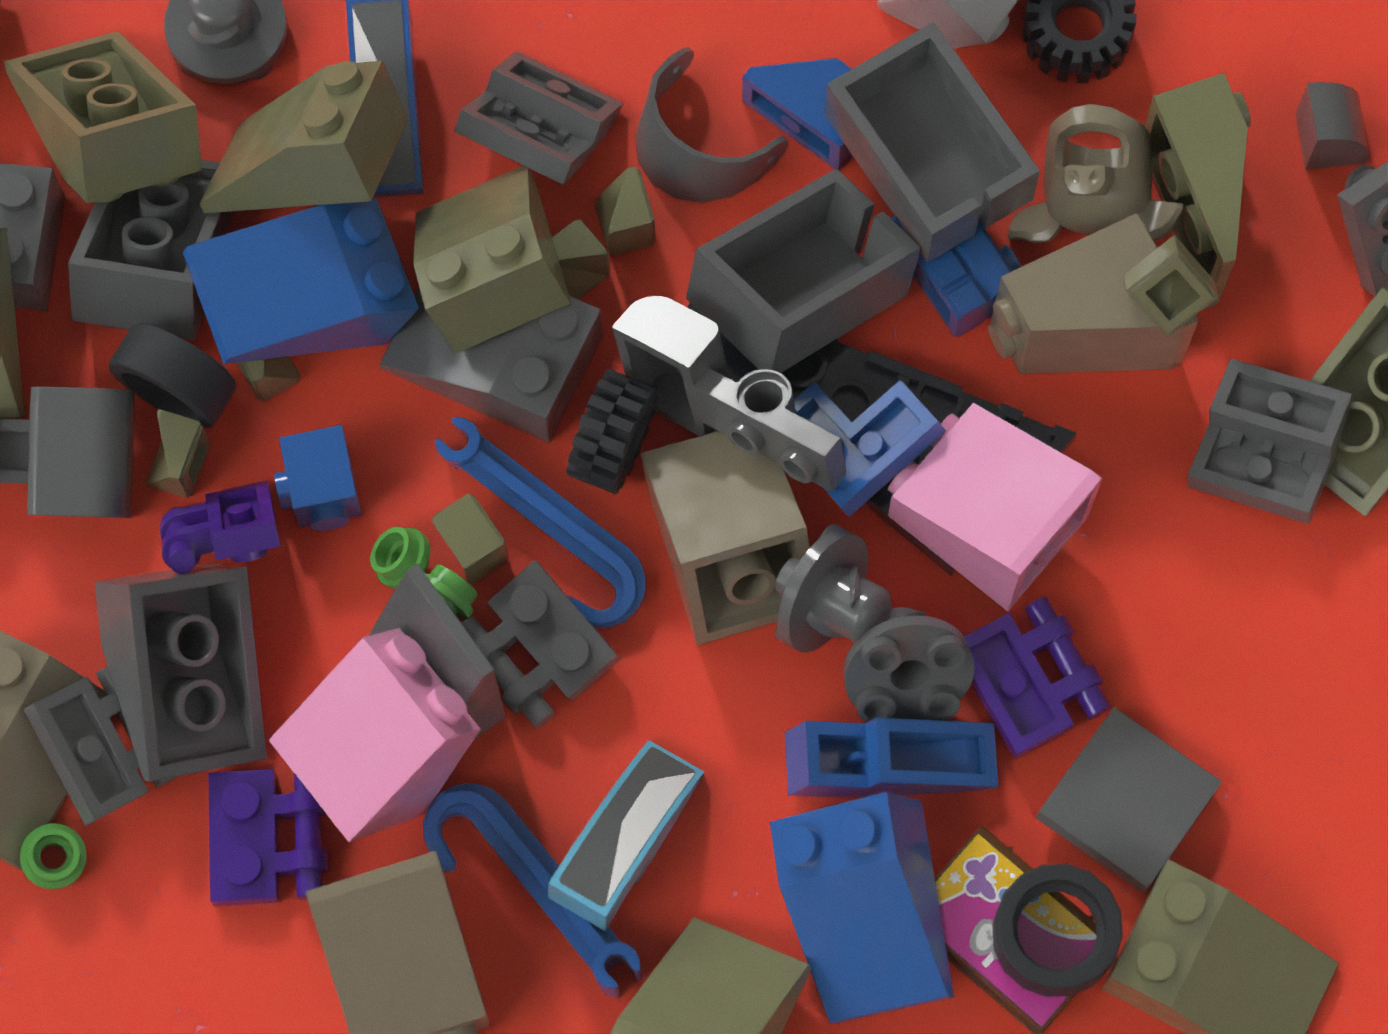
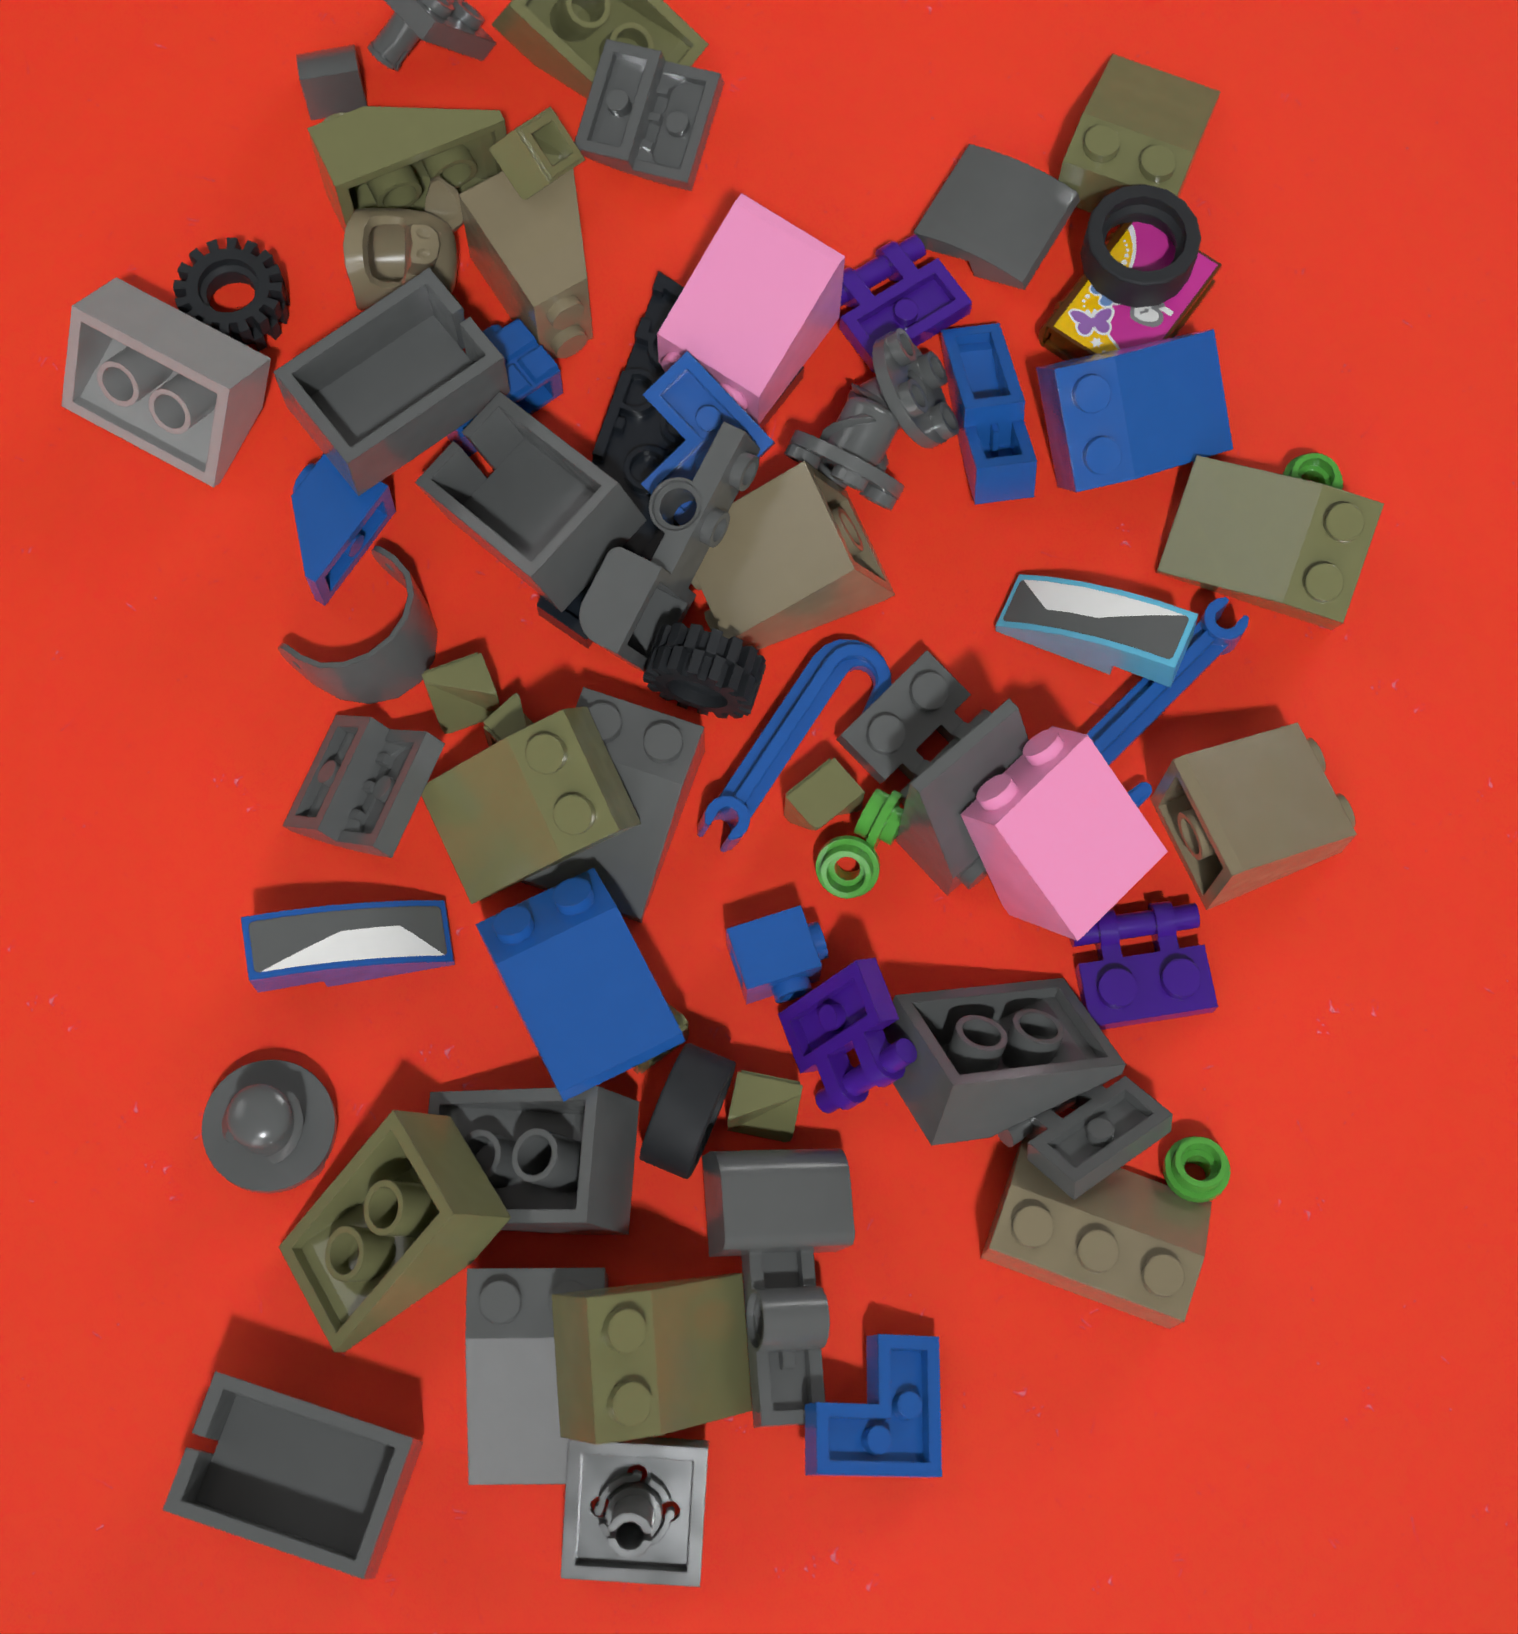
camera: 100 degrees left, 0 degrees up
(313, 143) = (425, 998): olive slope -> none

